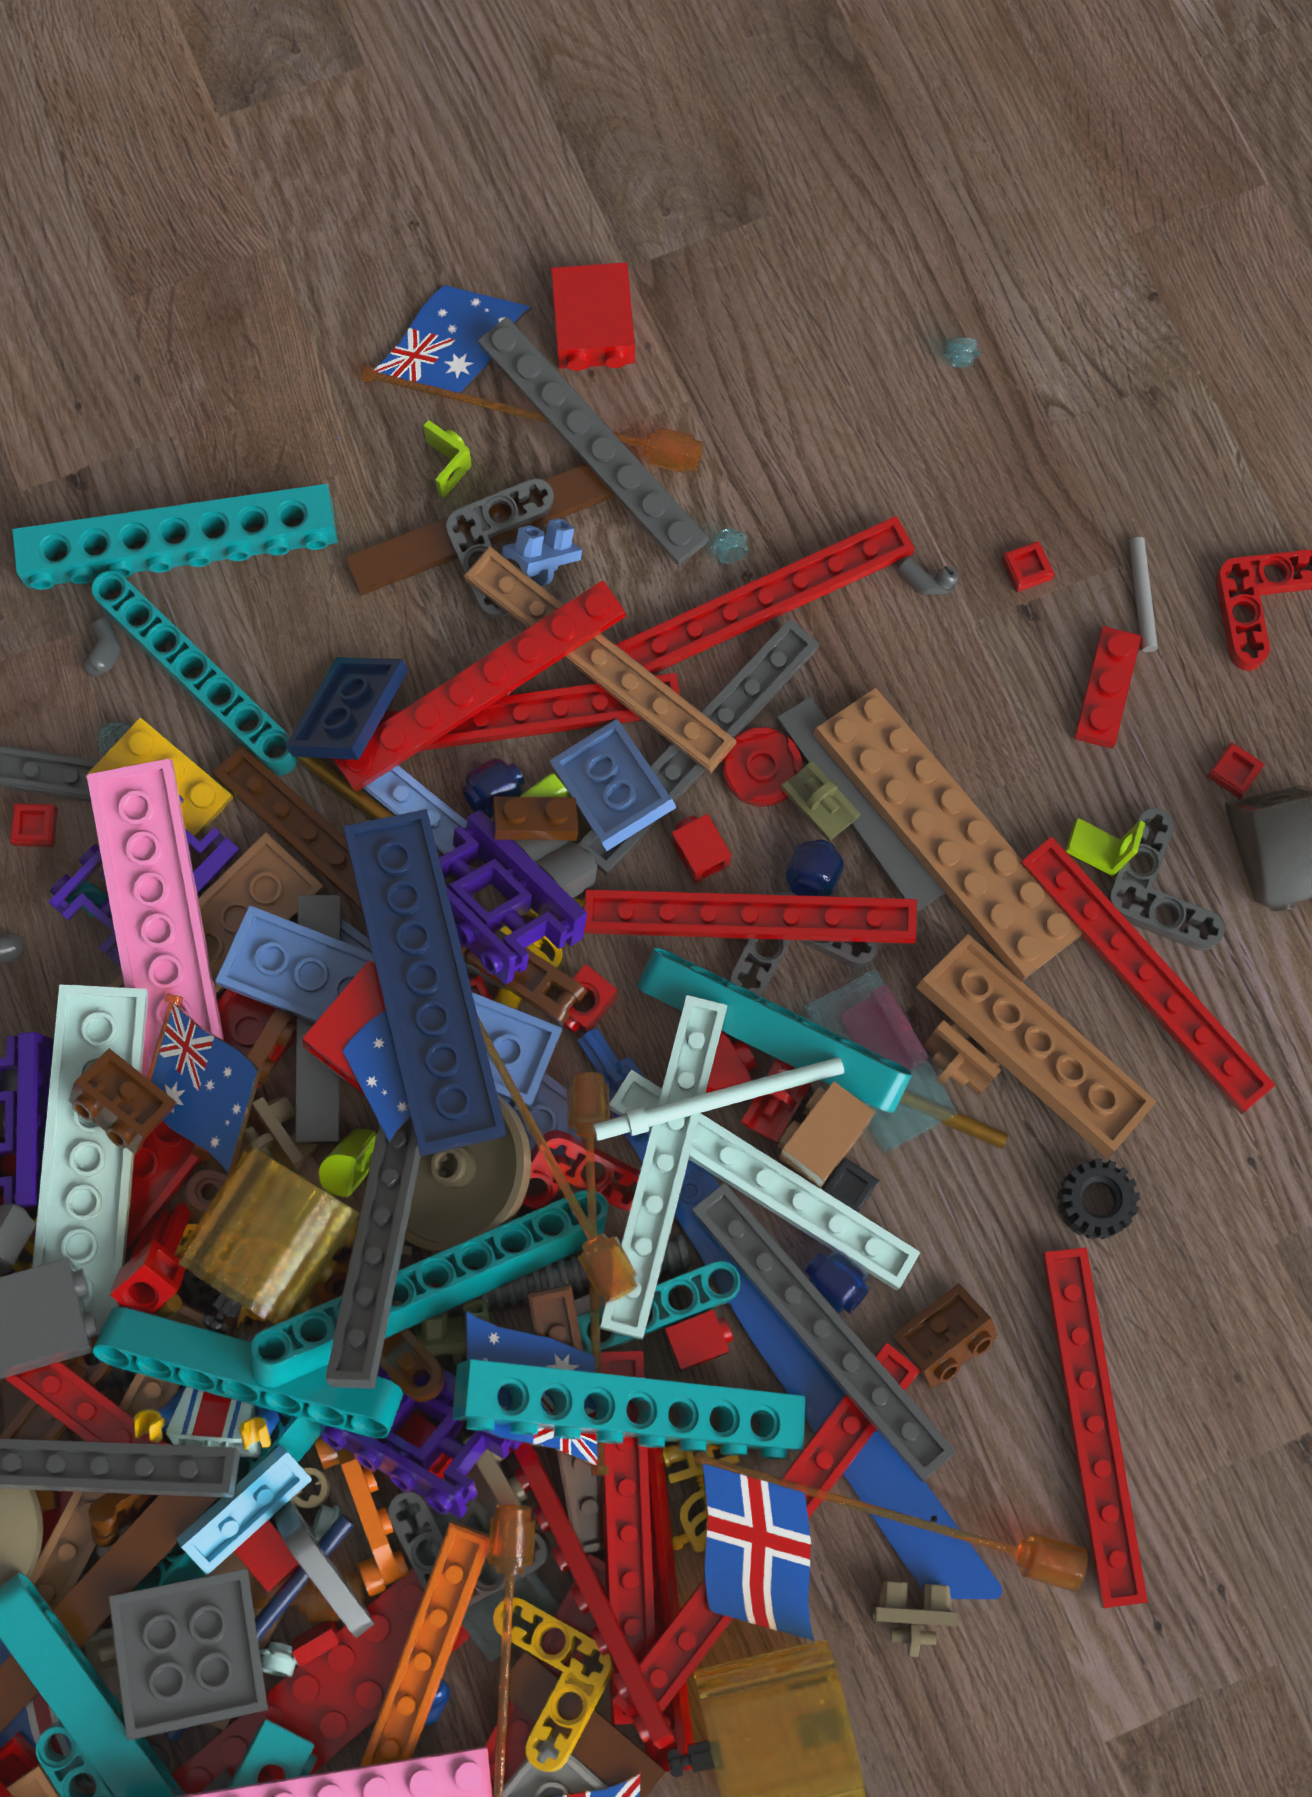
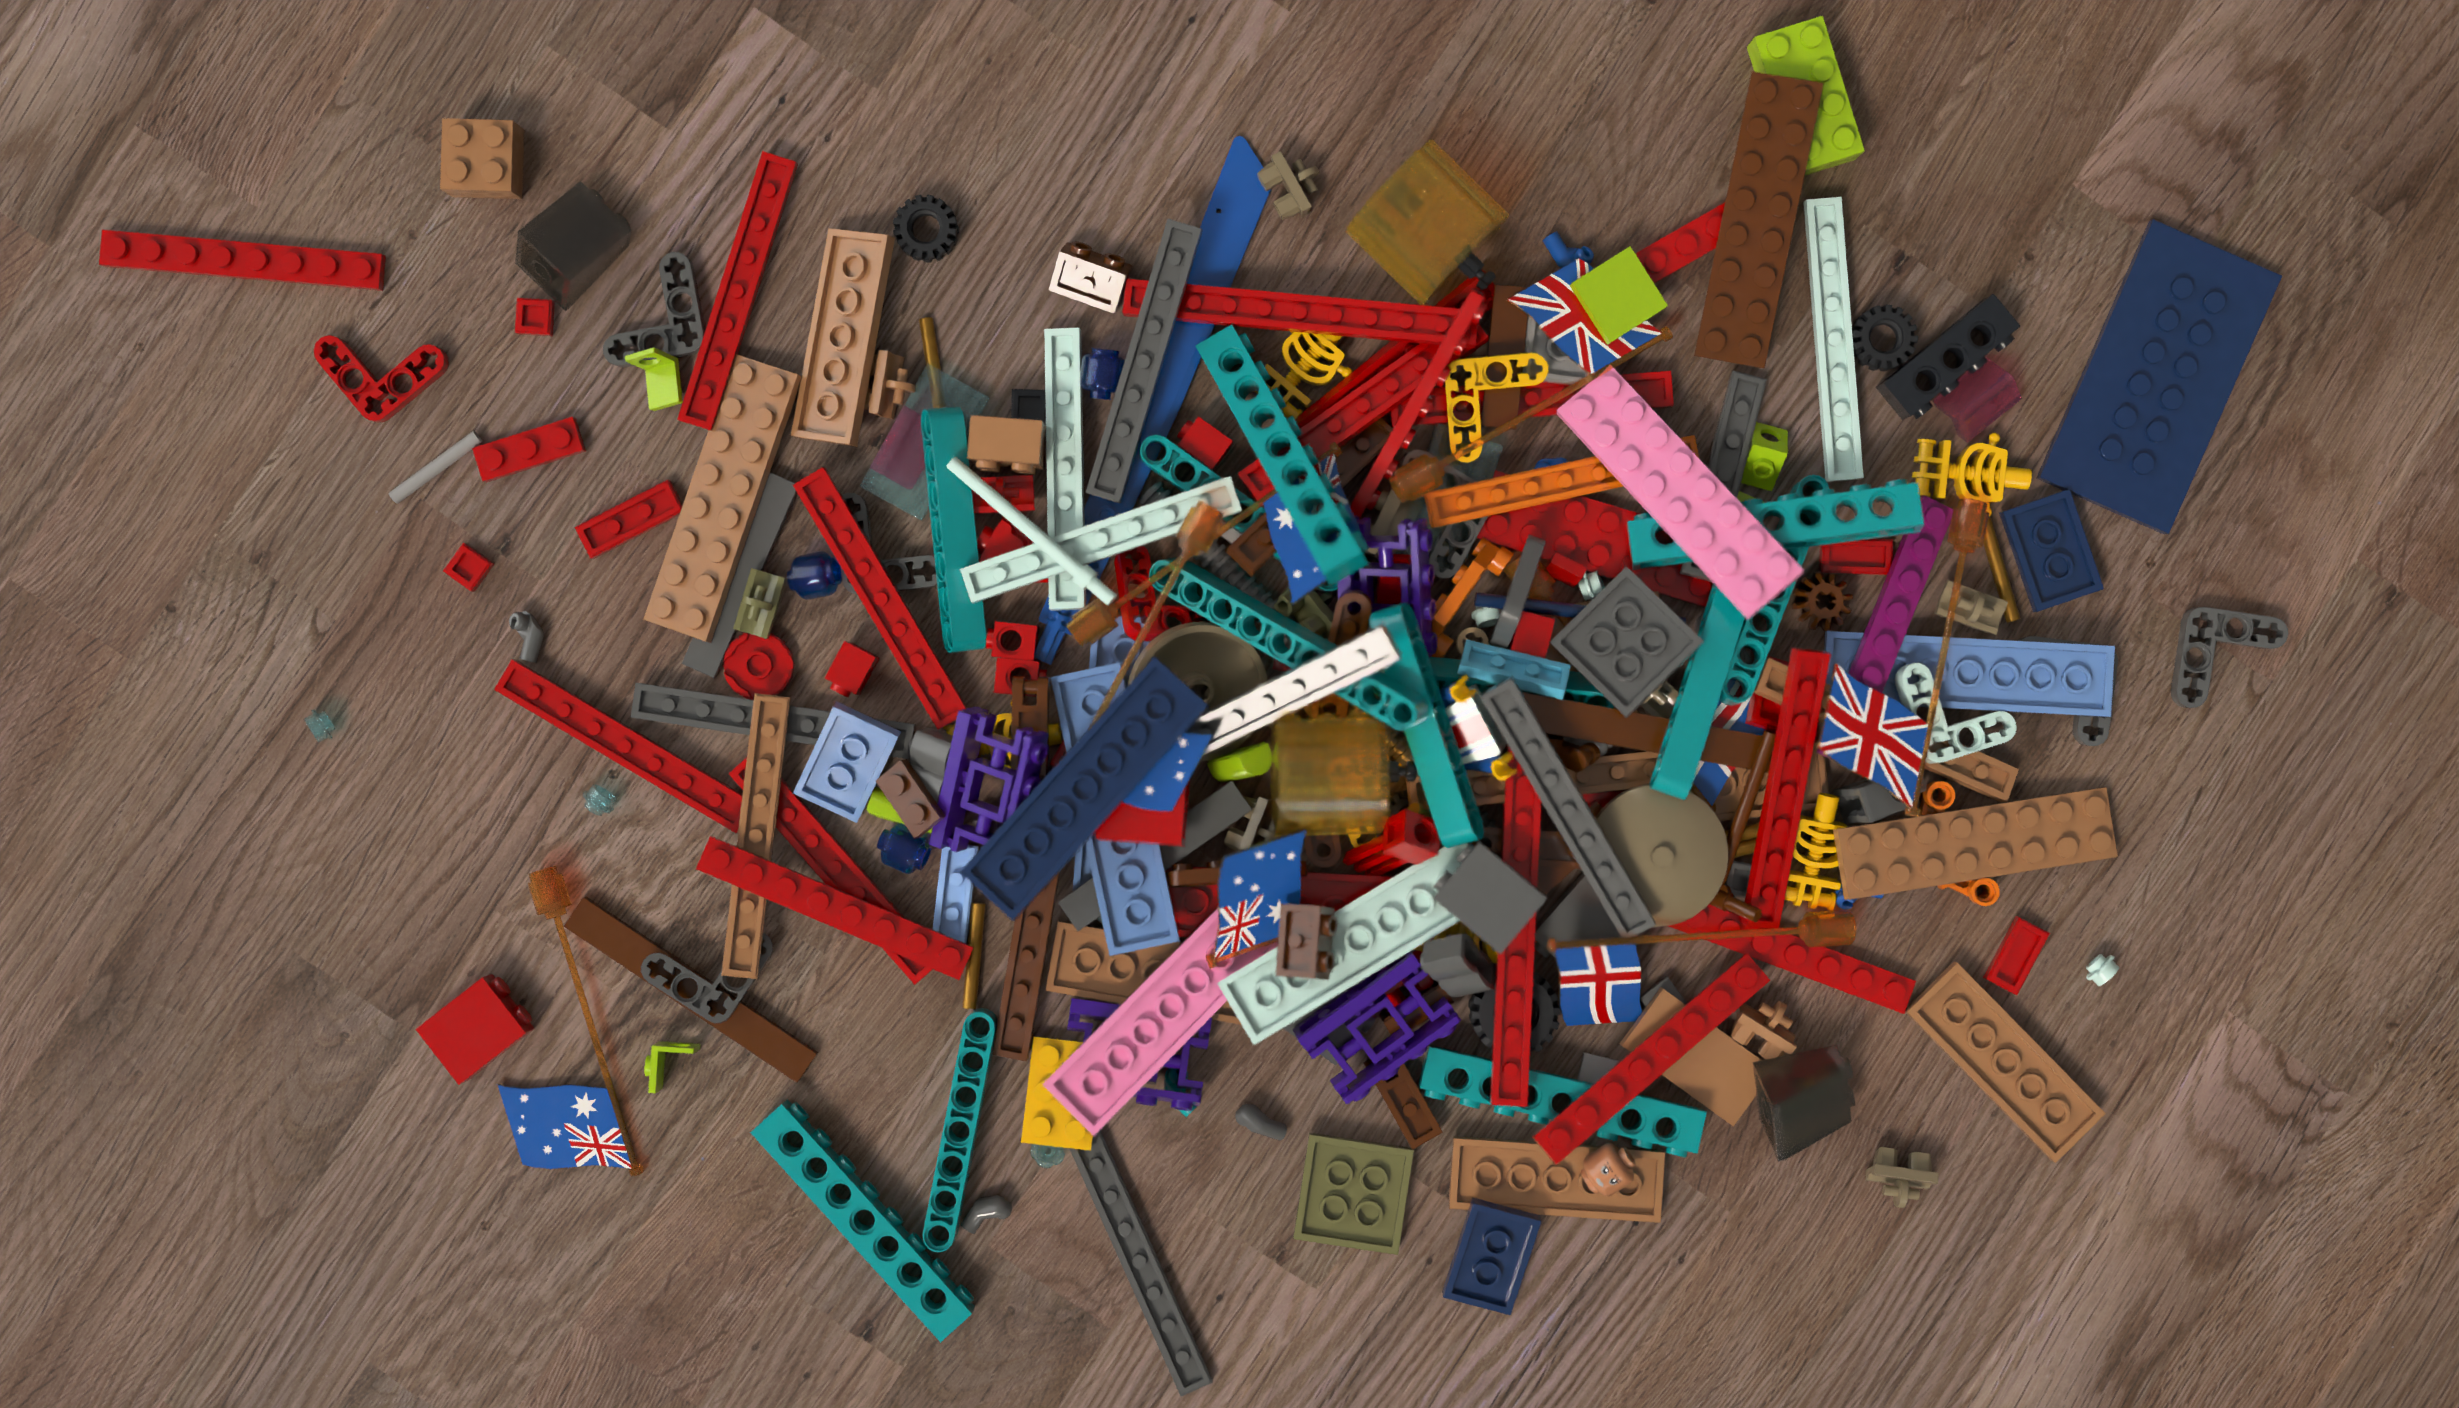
camera: 125 degrees left, 15 degrees up
(33, 825) = (1149, 1165): red tile -> none
(347, 708) = (915, 993): dark blue plate -> none
(542, 554) = (698, 934): medium blue hips -> none
(593, 441) = (582, 959): dark grey plate -> none
(623, 1037) = (1029, 640): none -> red brick
(763, 1546) = (1309, 312): flag -> none
(981, 736) = (629, 519): none -> red tile
(1094, 1428) = (1085, 140): red plate -> none

